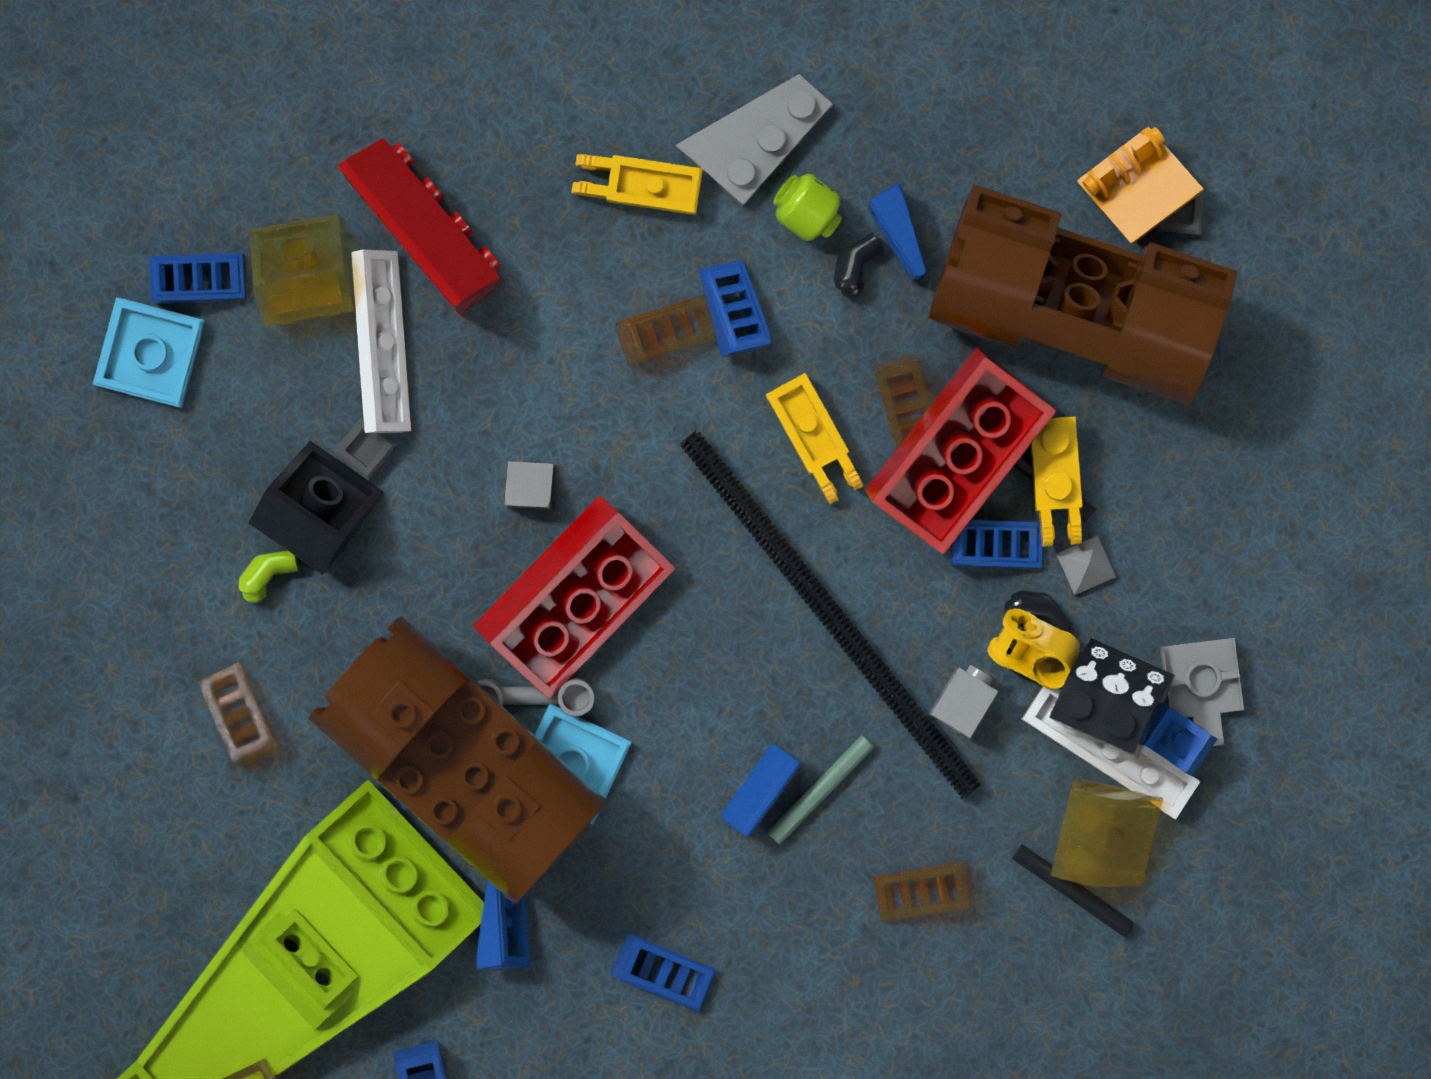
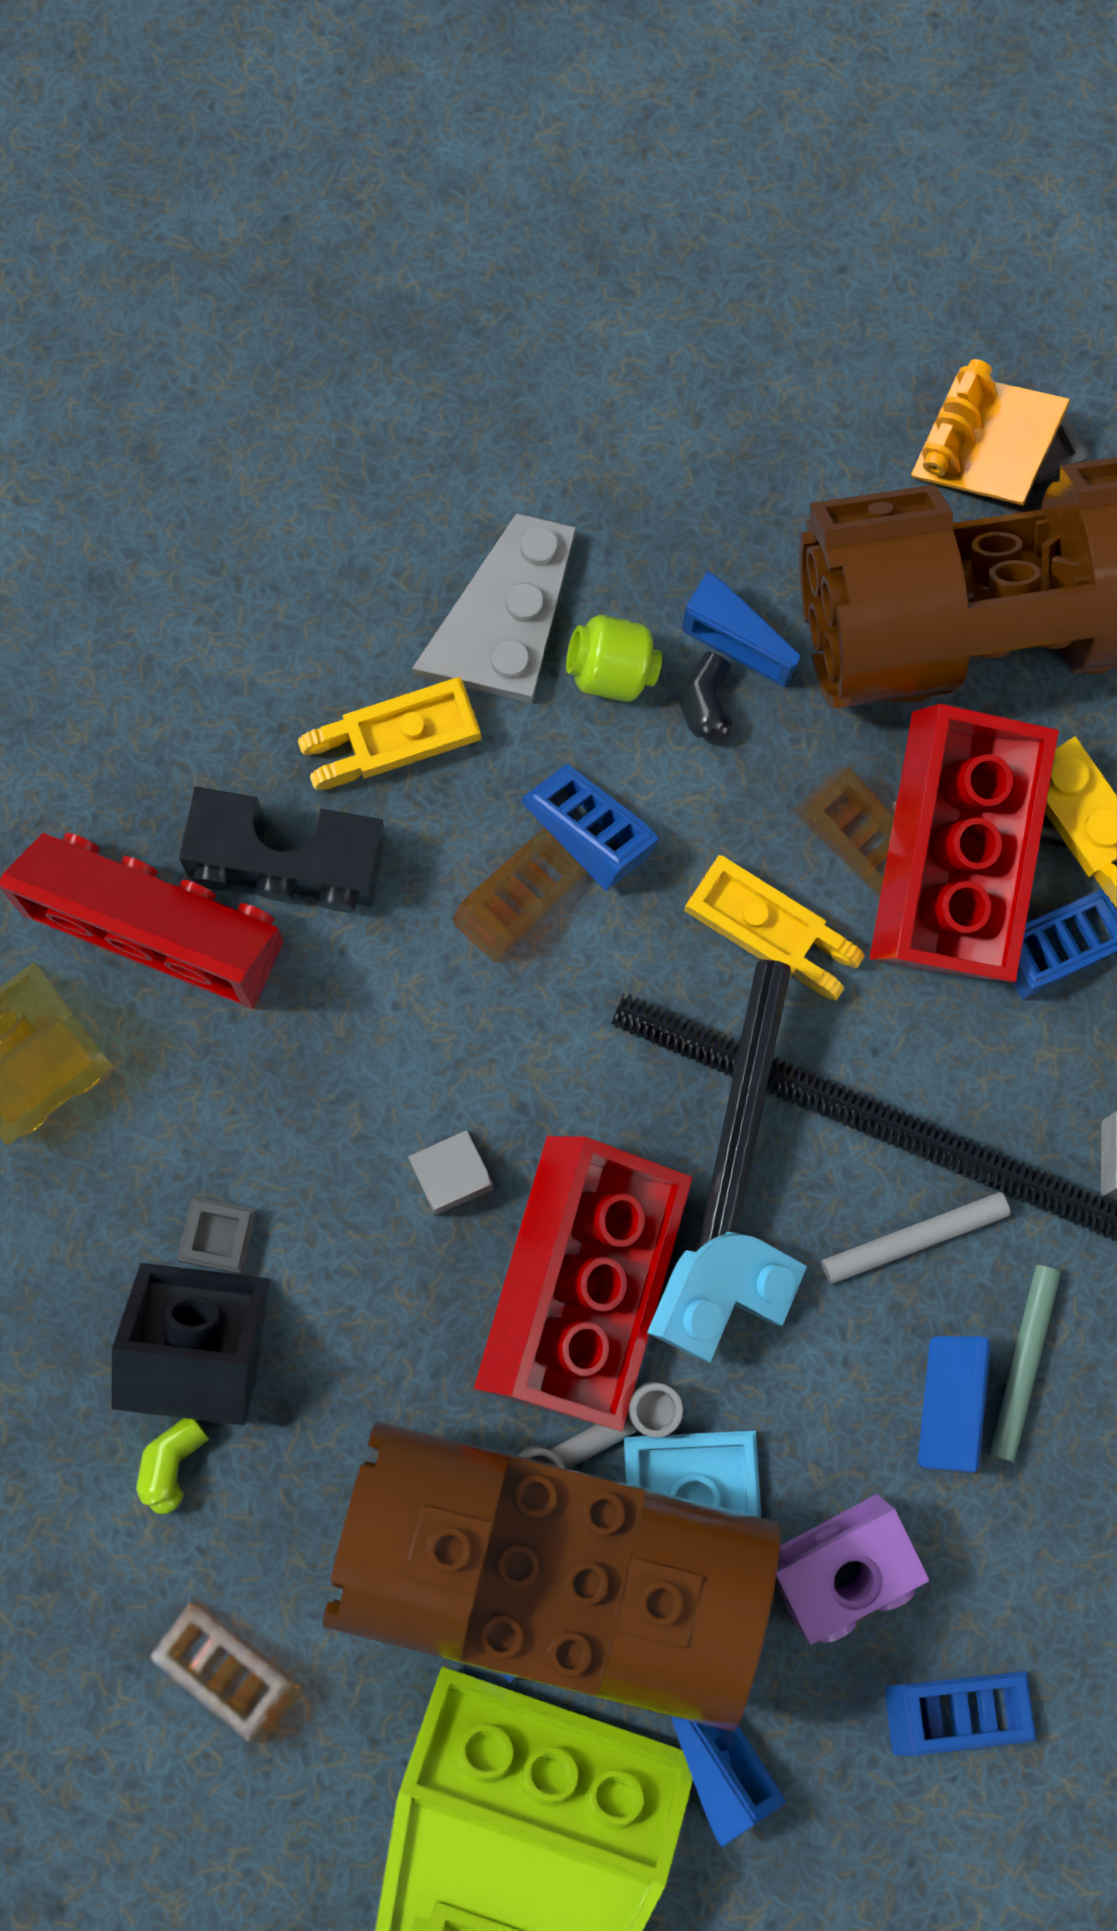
camera: 25 degrees left, 10 degrees down
(381, 341) = (169, 1089): white plate -> none
(495, 203) = (334, 865): none -> black arch
(654, 638) = (713, 1280): none -> medium azure plate
(658, 836) = (809, 1562): none -> medium lavender brick
(712, 565) = (746, 1099): none -> black axle
(796, 678) = (915, 1237): none -> light grey bar

